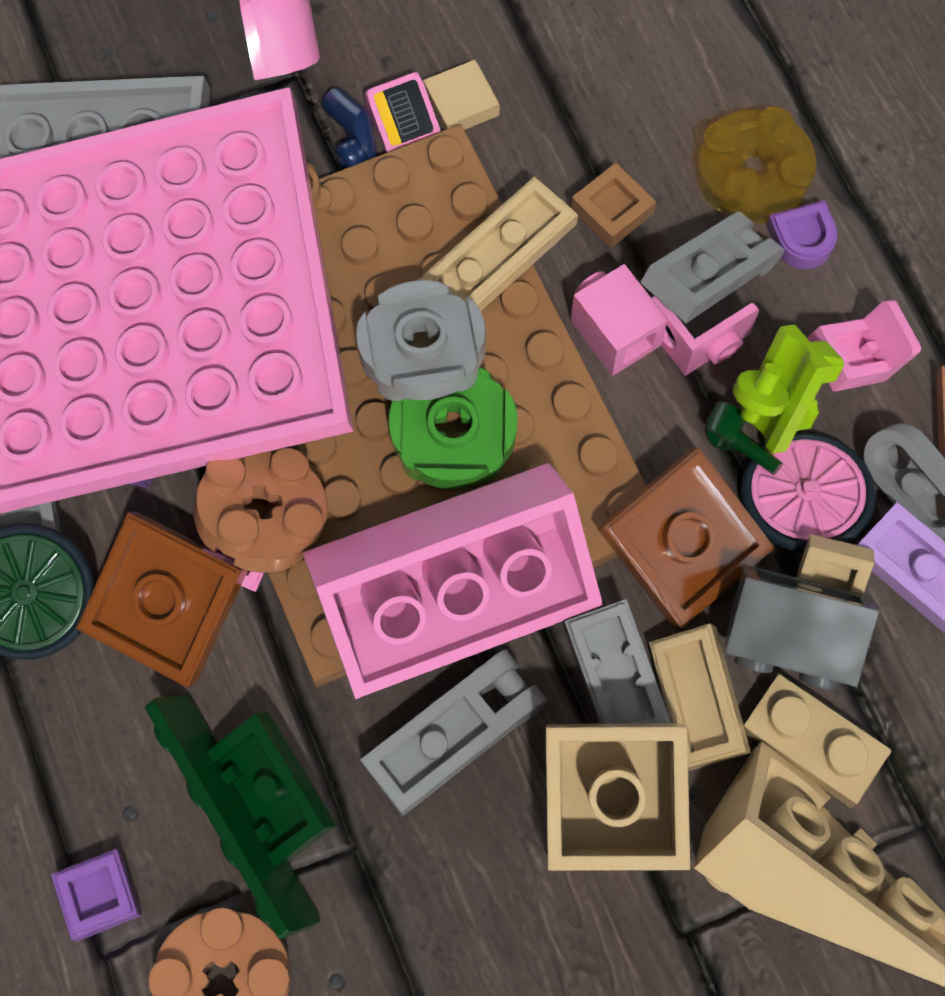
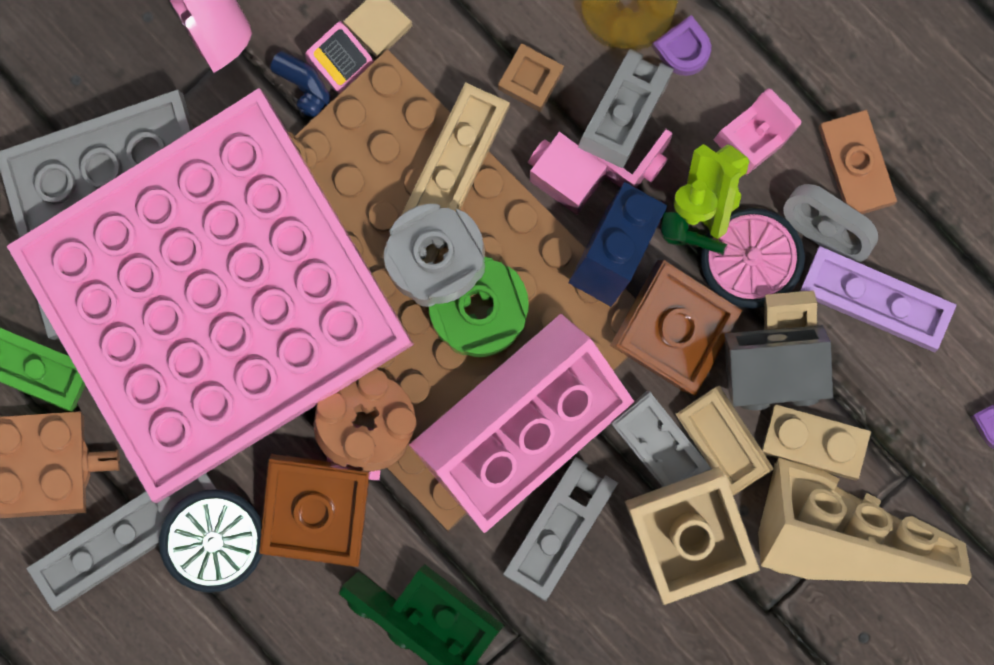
camera: 20 degrees left, 10 degrees up
(647, 411) = (617, 244): none -> dark blue brick

